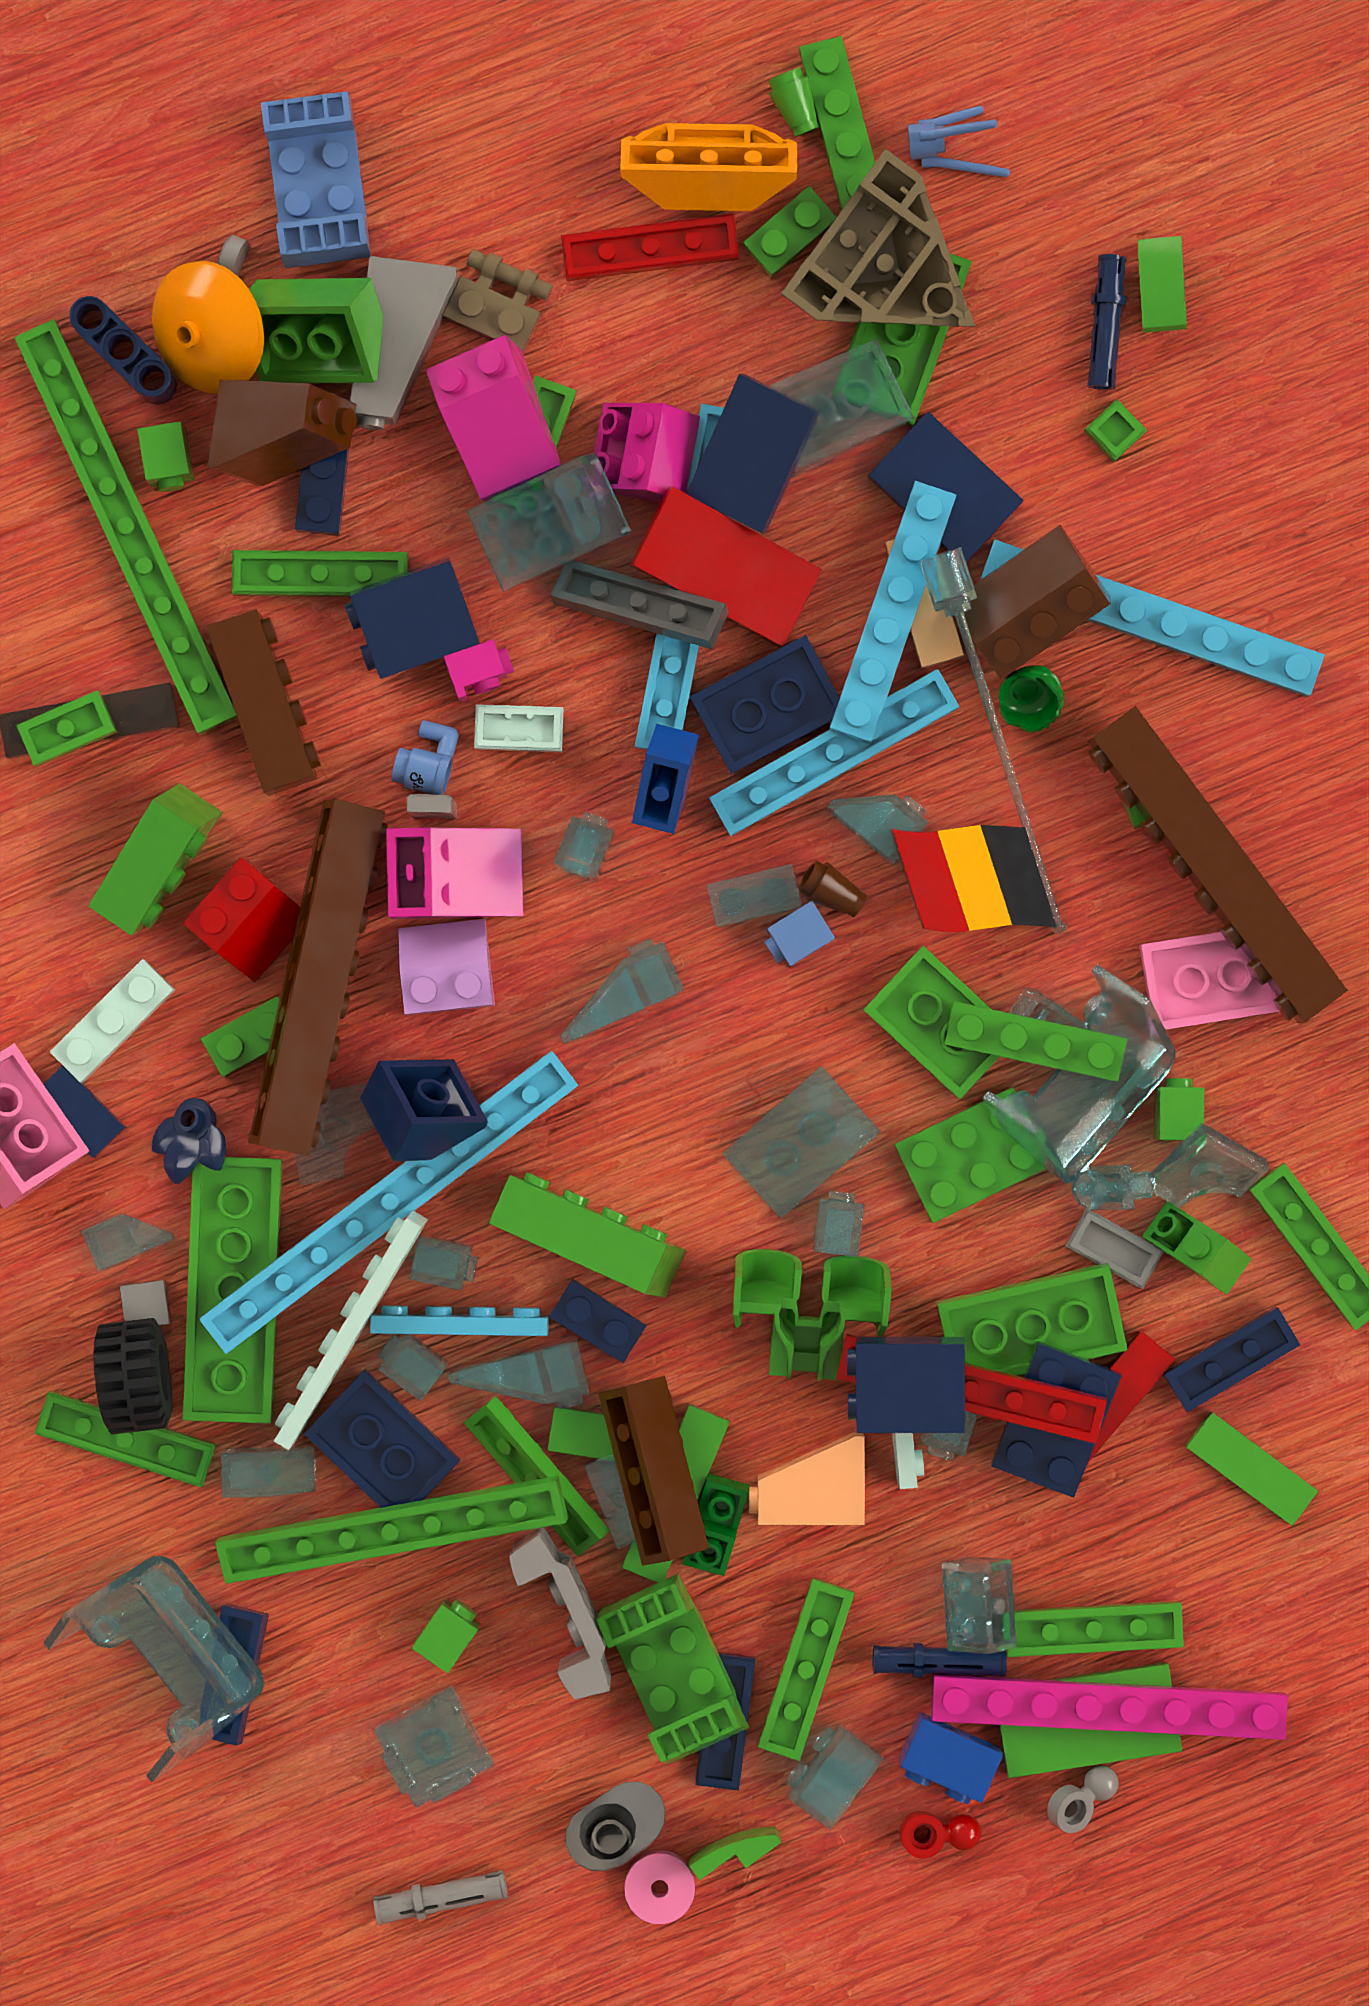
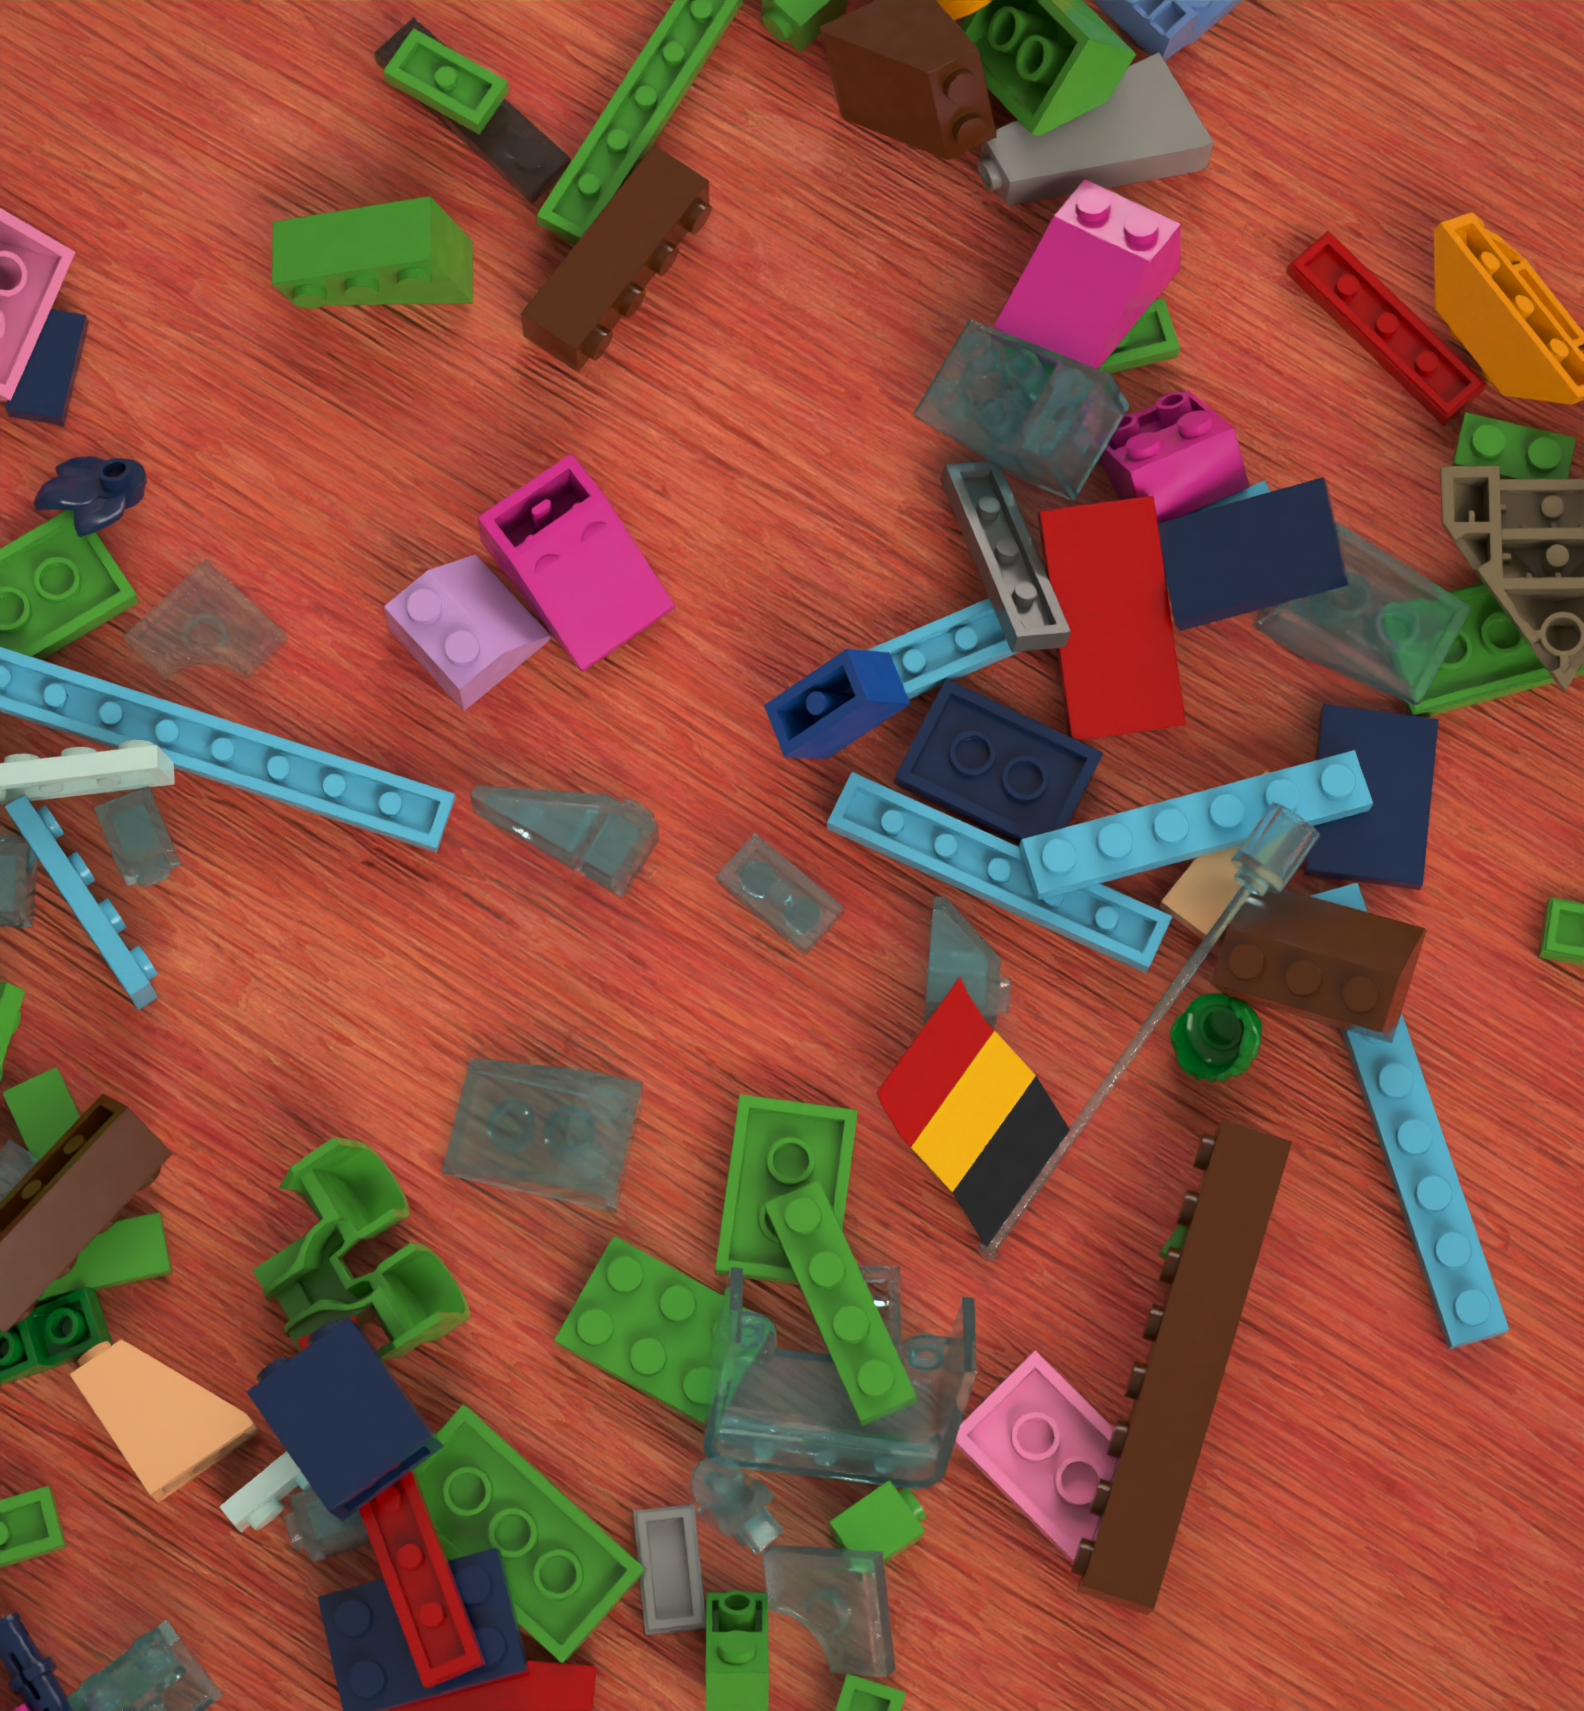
camera: 55 degrees right, 15 degrees down
(112, 1021) = (169, 336): light aqua plate -> none
(242, 1038) = (250, 483): bright green plate -> none
(246, 919) = (374, 392): red slope -> none
(311, 572) = (795, 232): bright green tile -> none
(317, 977) = (357, 498): reddish brown brick -> none
(322, 495) = (888, 177): dark blue plate -> none
(412, 618) = (816, 343): dark blue brick -> none
(421, 1107) = (294, 694): dark blue slope -> none
(424, 769) = (666, 466): medium blue piece -> none
(431, 806) = (629, 489): light grey tile -> none
(478, 668) = (812, 445): dark pink brick -> none
(491, 313) = (1194, 201): dark tan plate -> none
(518, 728) = (781, 531): light aqua plate -> none
(536, 1375) = (82, 1025): clear light blue slope -> none
(585, 846) = (700, 677): clear light blue slope -> none
(587, 1236) = (274, 971): bright green wedge -> none
(597, 1320) = (188, 1050): dark blue plate -> none
(798, 935) = (771, 969): medium blue brick -> none
(831, 889) = (847, 971): reddish brown cone -> none
(838, 1224) = (478, 1234): clear light blue brick -> none

